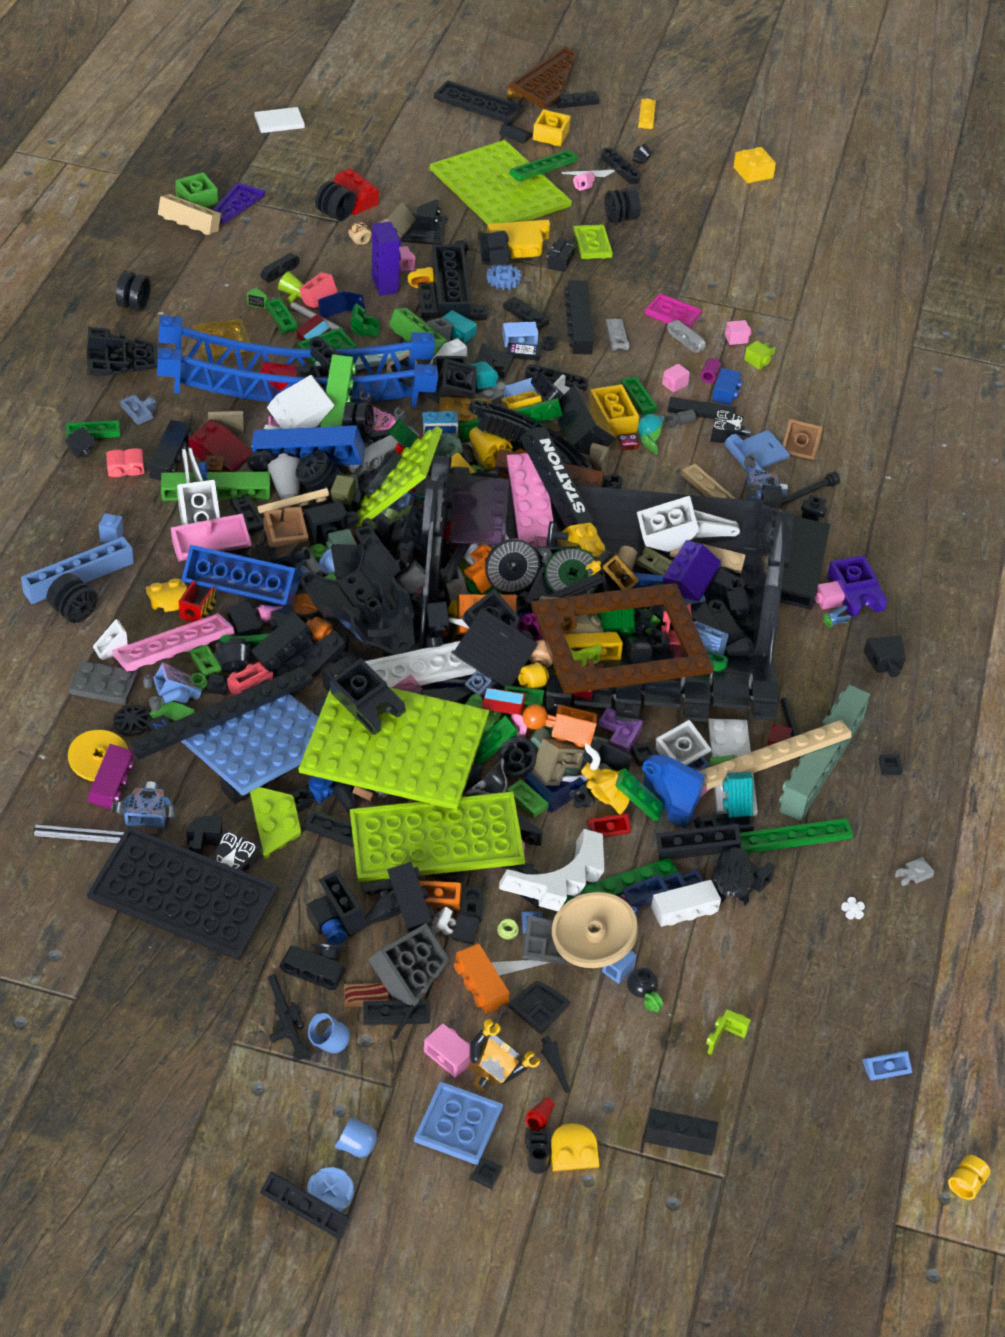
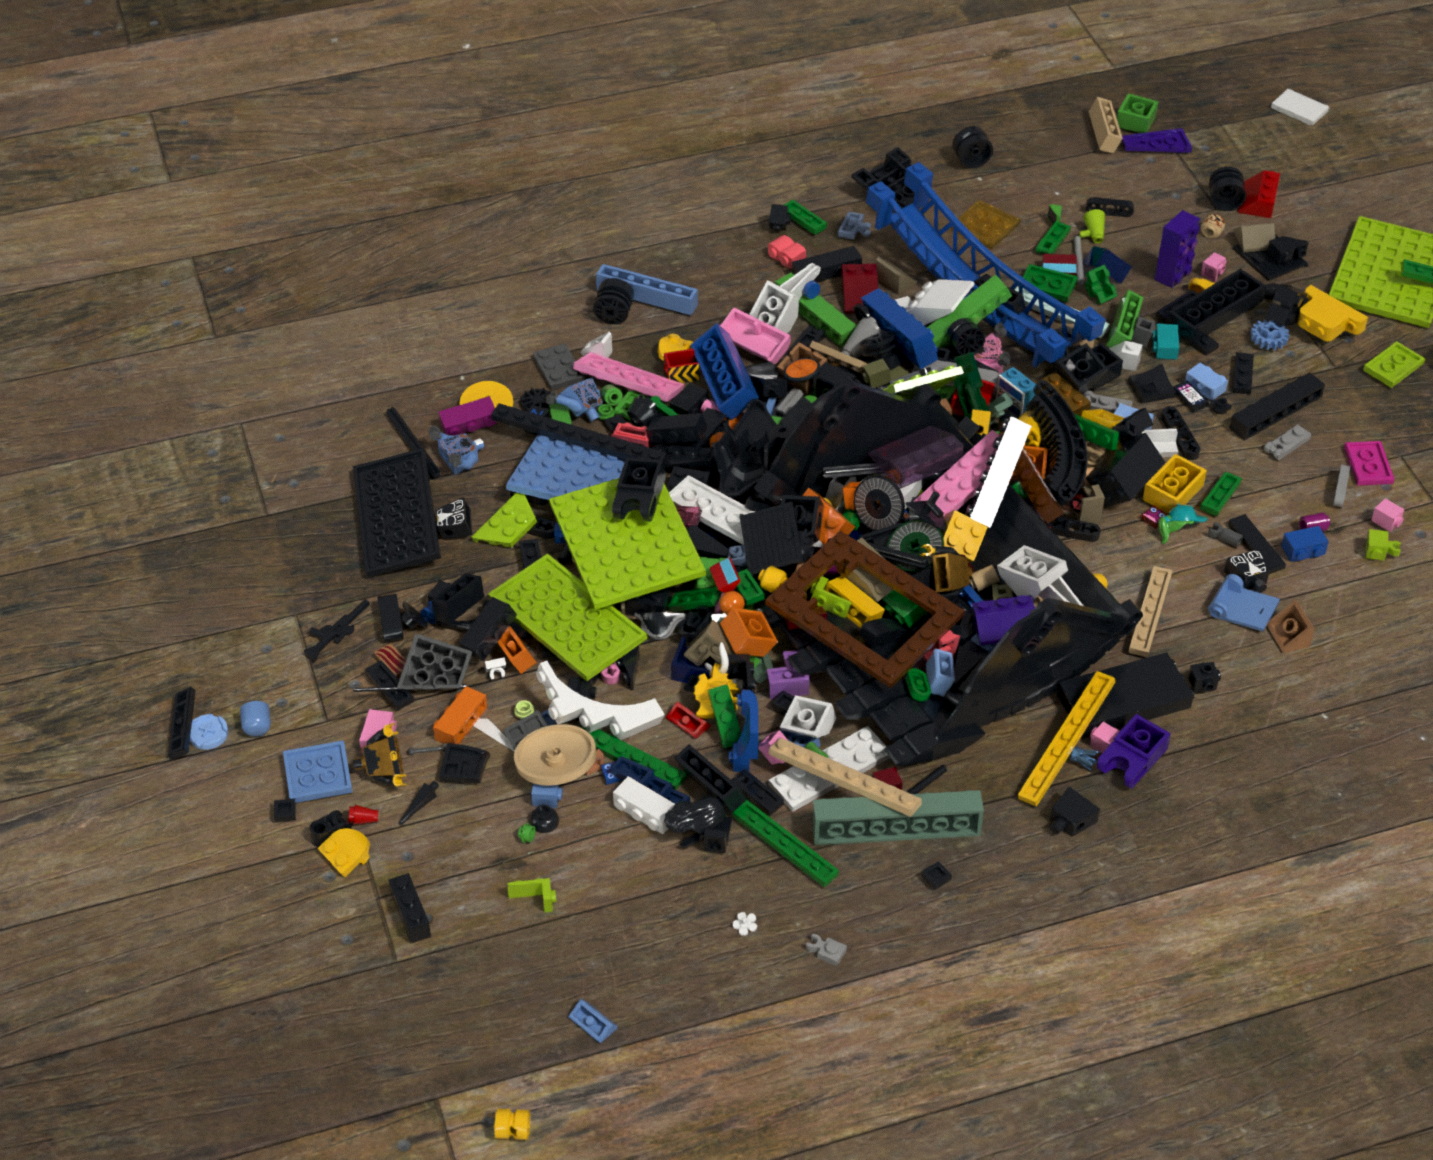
camera: 60 degrees right, 0 degrees up
(110, 527) = (708, 282): medium blue brick -> none
(186, 663) = (611, 395): none -> bright green brick
(204, 831) = (458, 489): black brick -> none
(215, 463) = (833, 296): reddish brown bracket -> none
(278, 369) = (972, 269): red slope -> none
(298, 527) = (801, 369): none -> orange wheel
(317, 288) = (1106, 238): coral brick -> none
(322, 353) = (1008, 274): black piece -> none
(337, 1035) = (334, 659): medium blue helmet -> none
(466, 929) = (502, 685): black slope -> none
(472, 898) = (528, 671): black plate -> none
(485, 375) = (1118, 383): teal brick -> none
(528, 799) = (665, 654): bright green plate -> none
(561, 254) = (1347, 353): black brick -> none
(675, 378) = (1273, 505): bright pink brick -> none
(738, 794) = (781, 776): teal brick -> none
(757, 478) = (1196, 628): torso -> none
(823, 615) = (1066, 738): none -> yellow plate
(831, 479) = (1265, 674): black piece -> none

